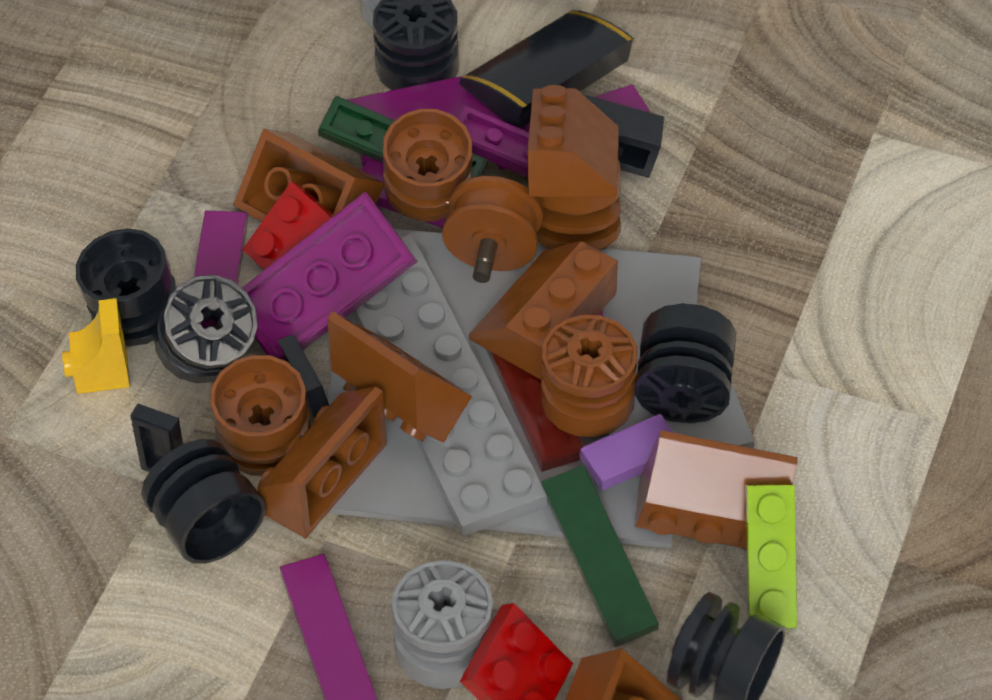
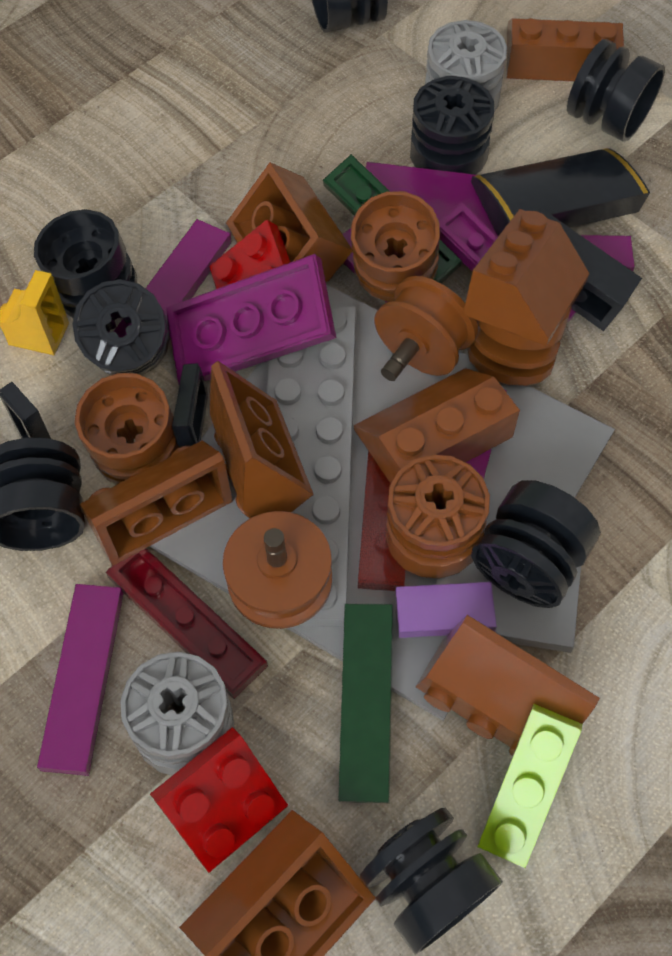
camera: 25 degrees right, 10 degrees up
(380, 551) = (187, 619): none -> dark red tile
(474, 467) = (278, 569): none -> dark orange wheel

